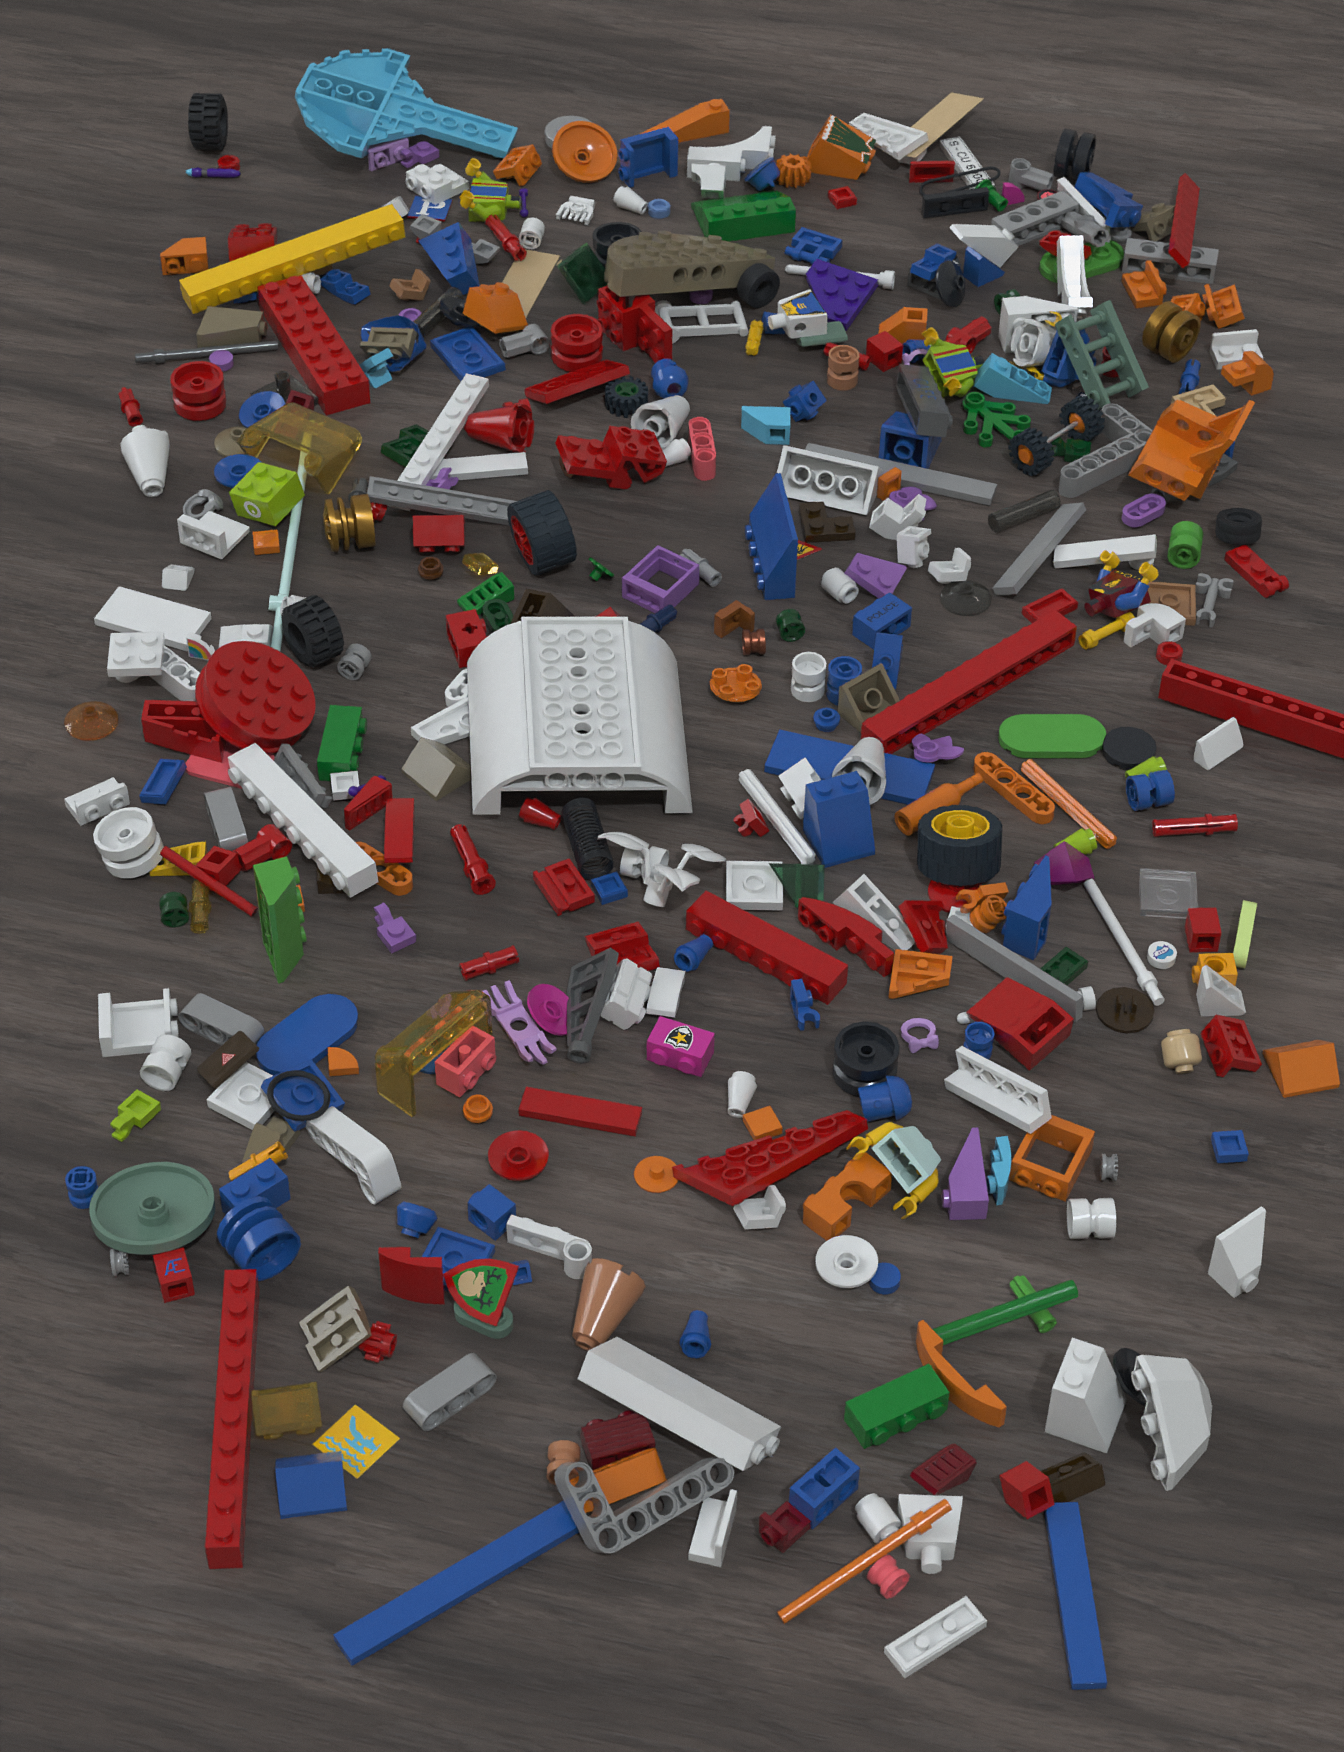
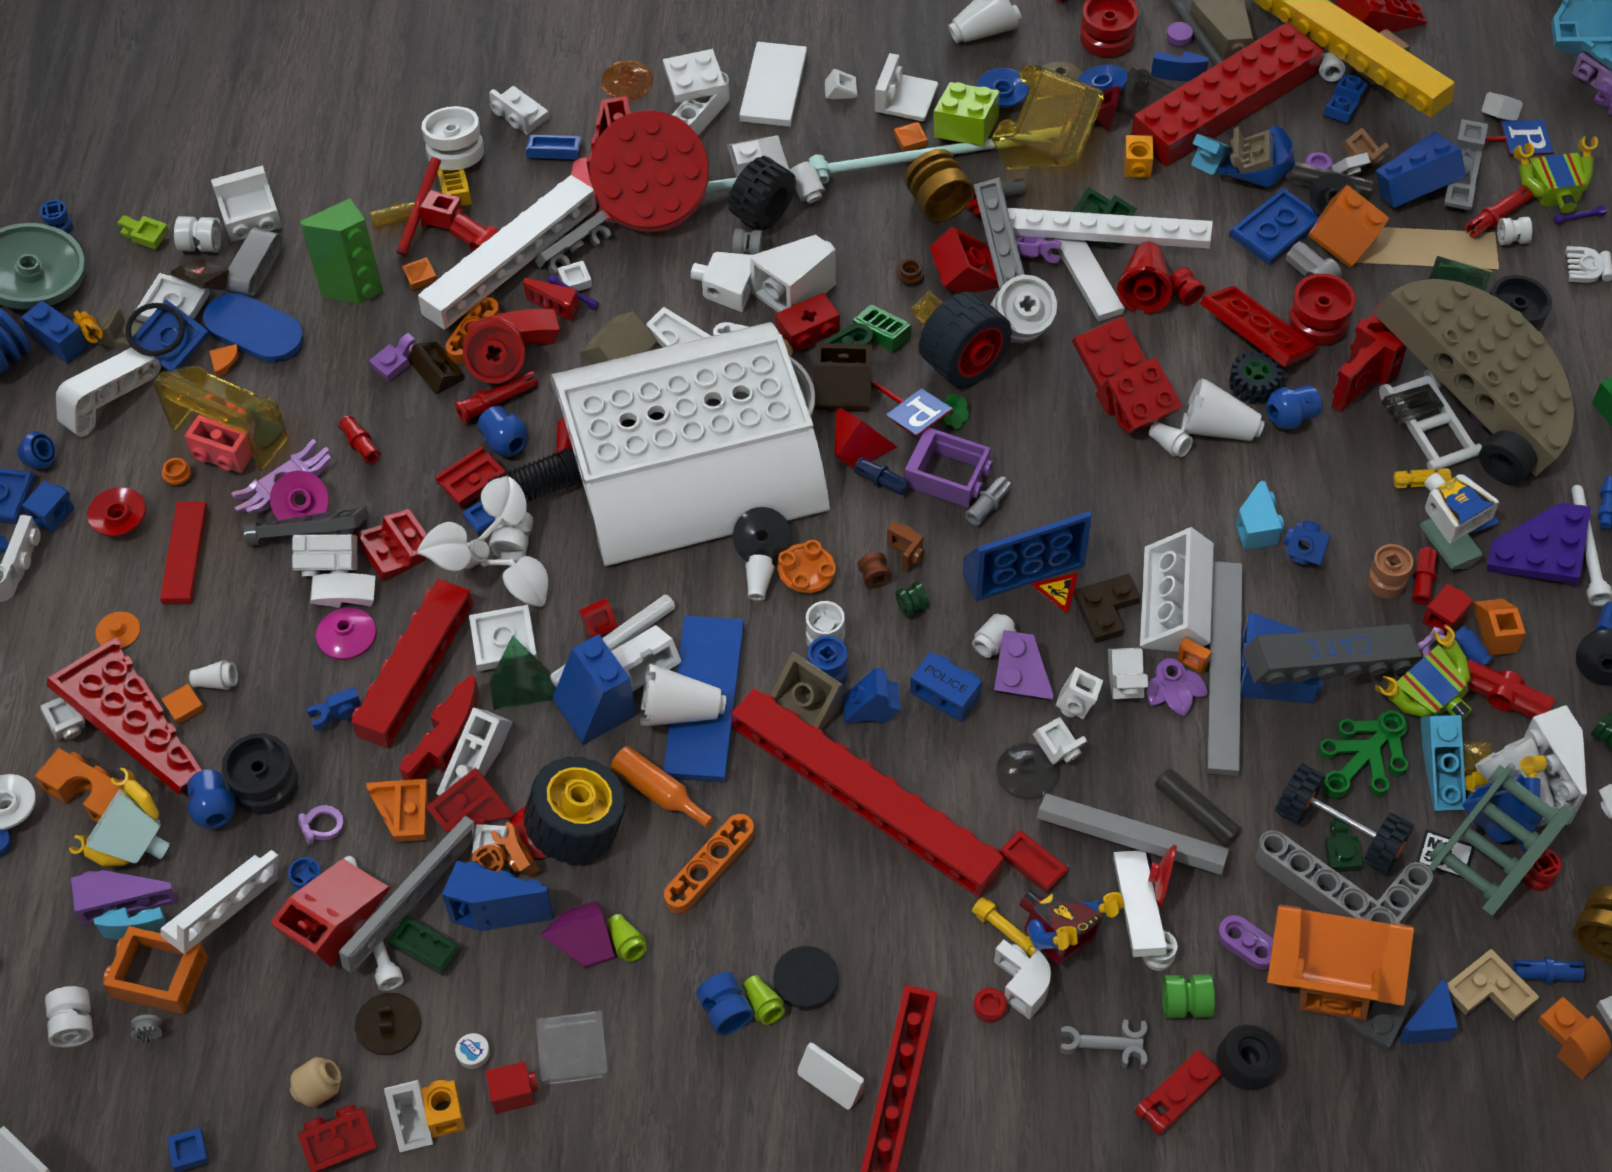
camera: 80 degrees right, 10 degrees up
(174, 909) = (386, 194): dark green wheel -> none
(198, 648) = (737, 124): tile -> none
(214, 502) = (957, 73): light grey piece -> none
(225, 818) = (506, 201): light grey beam -> none
(265, 368) = (1176, 68): none -> blue slope
(341, 741) = (628, 259): green brick -> none
(360, 409) = (1138, 156): none -> light orange brick
(394, 680) = (725, 279): none -> white torso
(415, 902) = (435, 366): none -> dark brown slope
(422, 630) = (793, 272): none -> white slope
(425, 296) = (1352, 165): none -> white plate
(432, 836) = (489, 366): none -> red wheel
(435, 183) = (1567, 125): white plate -> none
(510, 486) = (1035, 298): none -> white wheel
(524, 851) = (503, 431): none -> blue piece
(600, 582) = (917, 411): none -> piece
(680, 1046) = (267, 613): dark pink brick -> none
(683, 320) = (1416, 407): none -> clear smoke tile
(692, 953) = (397, 601): blue cone -> none
(697, 702) = (761, 519): none -> black dish
(702, 448) = (1188, 462): coral beam -> none
(711, 1001) = (349, 642): none -> dark pink dish
(737, 713) = (758, 573): none -> white cone
(826, 719) = (773, 668): blue plate -> none
(932, 750) = (753, 775): medium lavender plate -> none
(1052, 735) = (806, 891): bright green tile -> none
(1068, 803) = (695, 923): orange axle -> none
(1087, 525) = (1161, 873): none -> red dish
(1145, 978) = (428, 1038): white bar -> none
(1177, 596) = (1085, 995): medium nougat tile -> none
(1193, 825) = (689, 1075): red pin -> none
(1244, 933) = (512, 1134): yellowish green beam -> none

